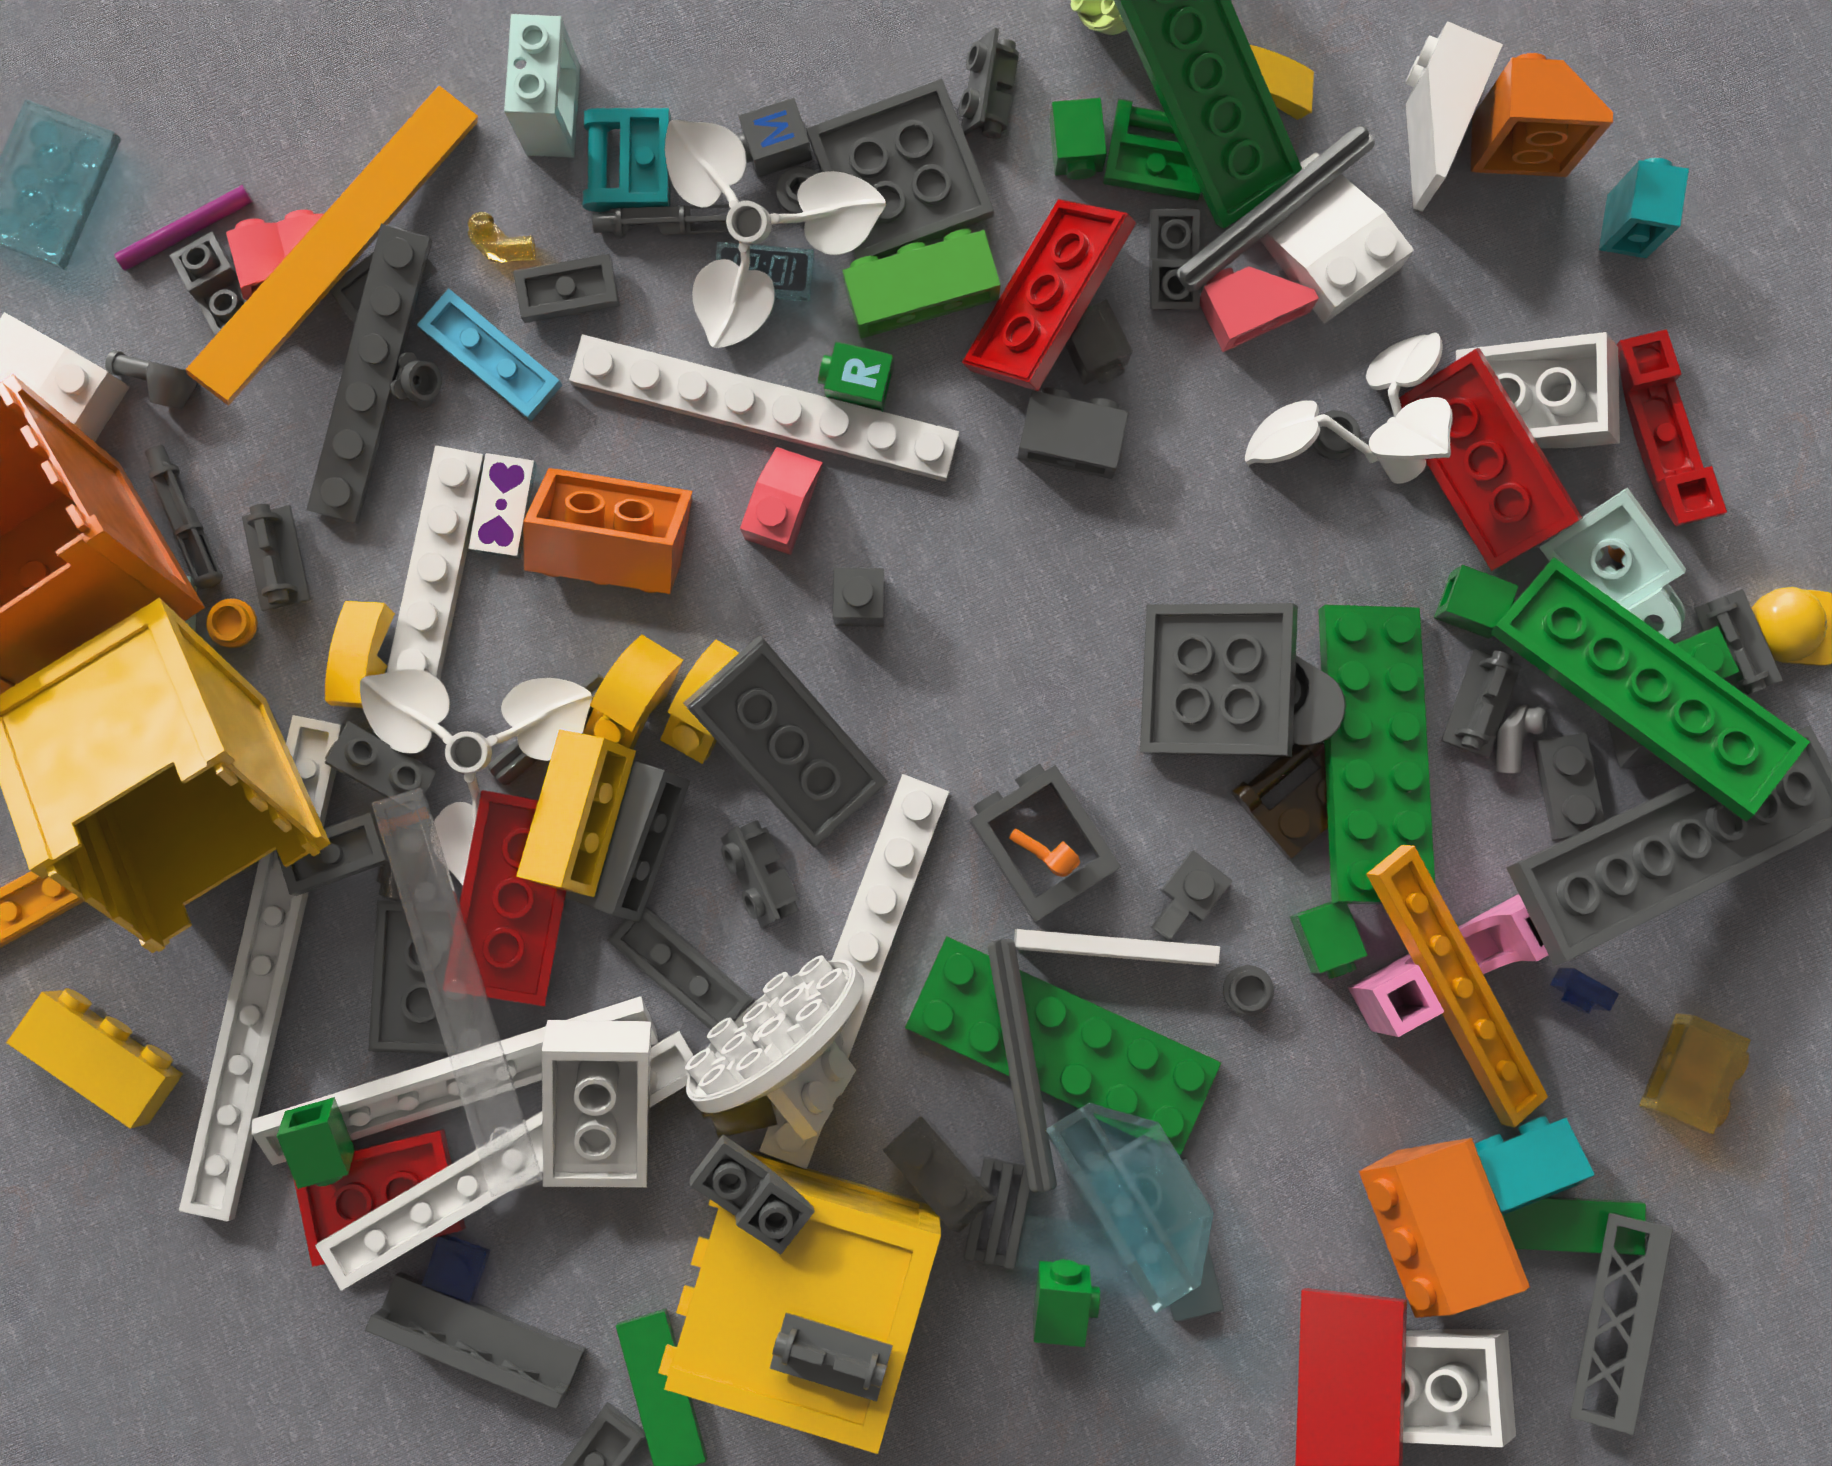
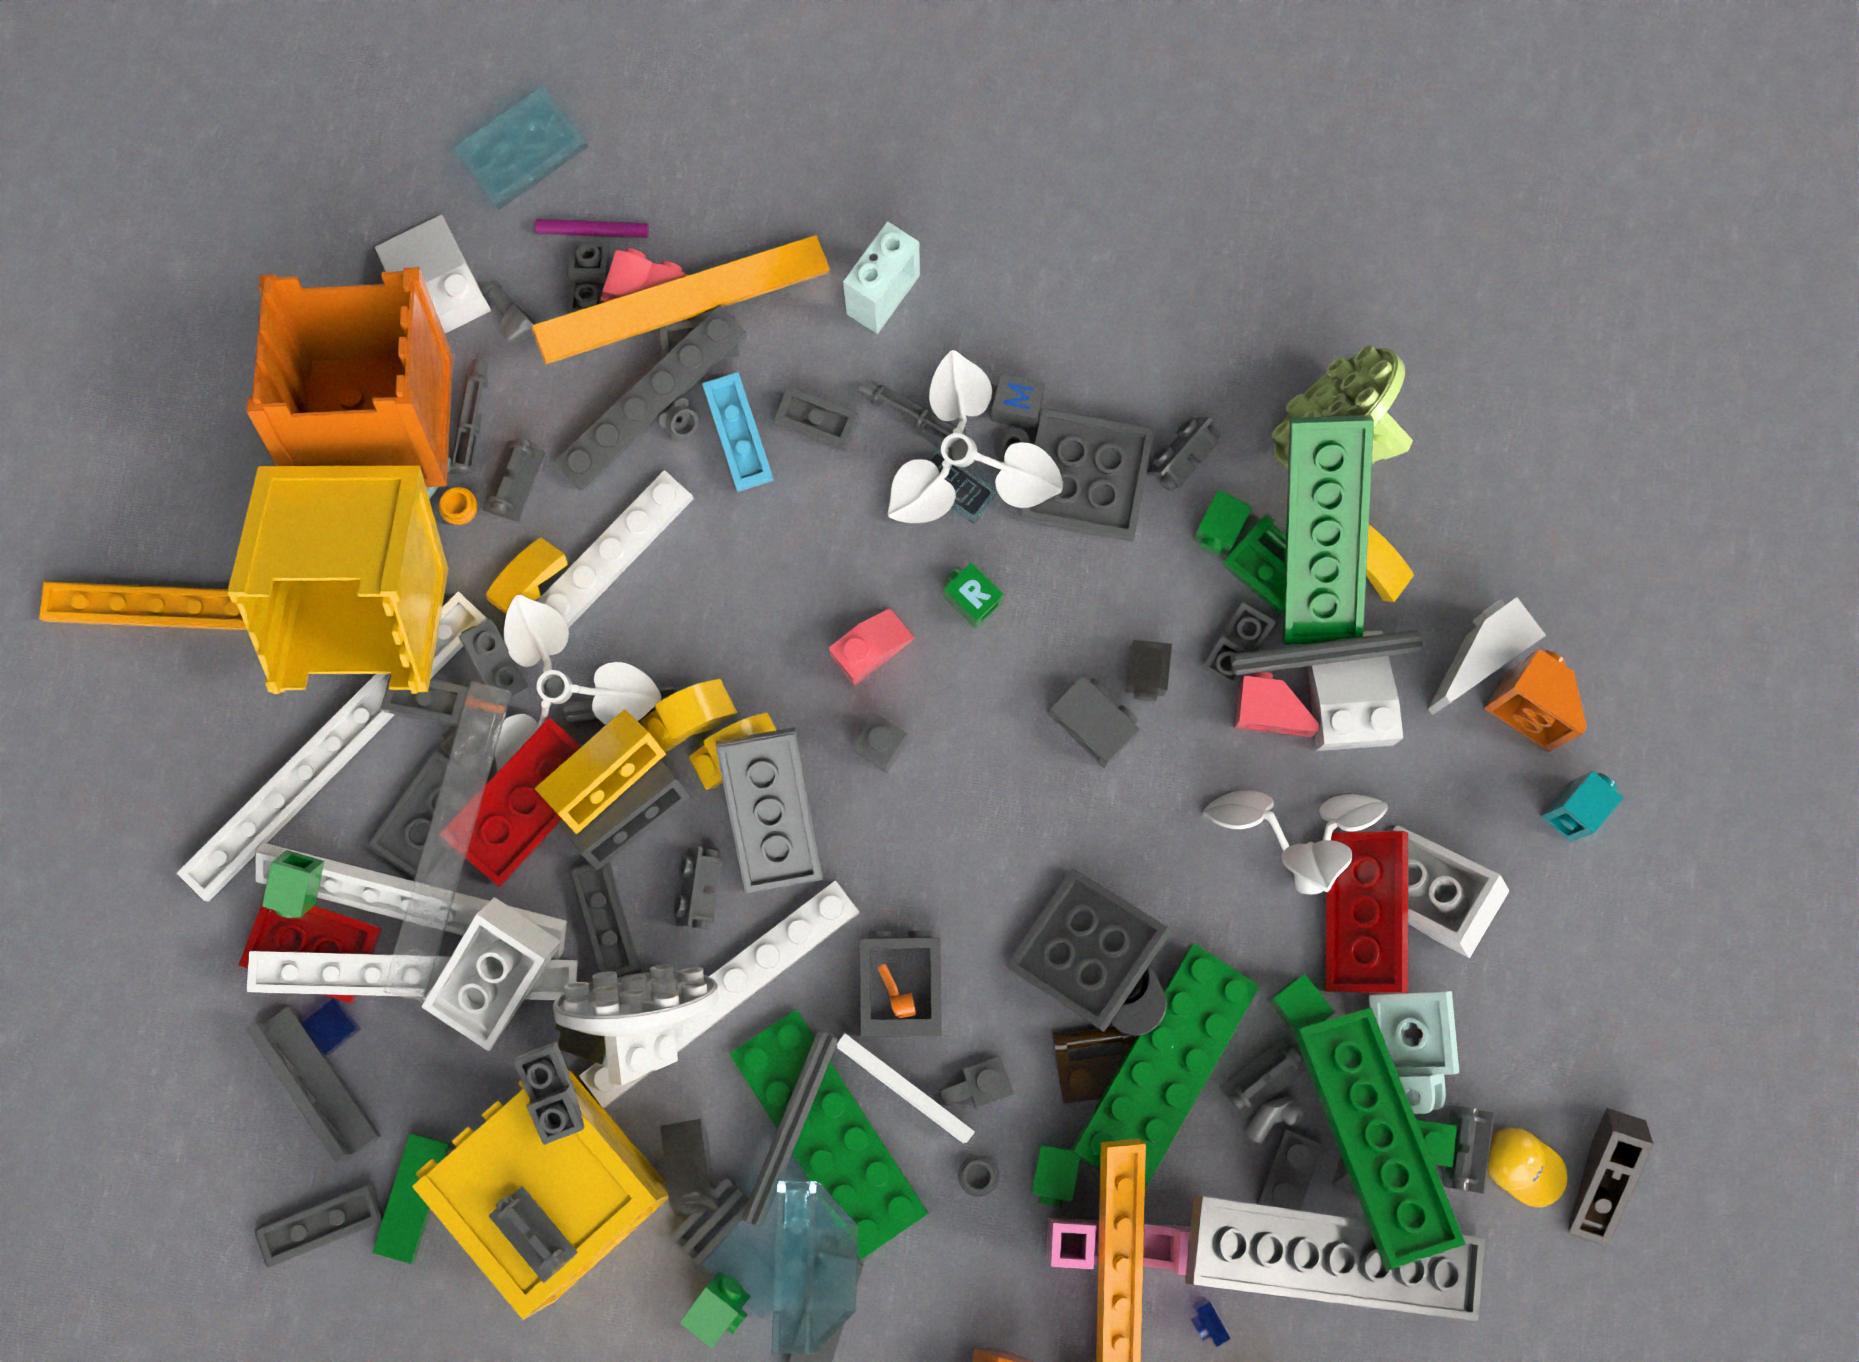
camera: 30 degrees right, 5 degrees down
(96, 1056) = (189, 737): yellow brick -> none
(495, 244) = (788, 360): clear yellow arm -> none
(502, 505) = (683, 537): tile -> none
(606, 530) = (741, 595): orange slope -> none
(643, 165) = (917, 367): teal plate -> none
(764, 408) = (899, 578): white plate -> none
(921, 282) = (1054, 556): bright green brick -> none
(1049, 293) = (1135, 616): red tile -> none
(1332, 445) = (1267, 836): dark grey plate -> none
(1663, 430) = (1508, 969): red slope -> none

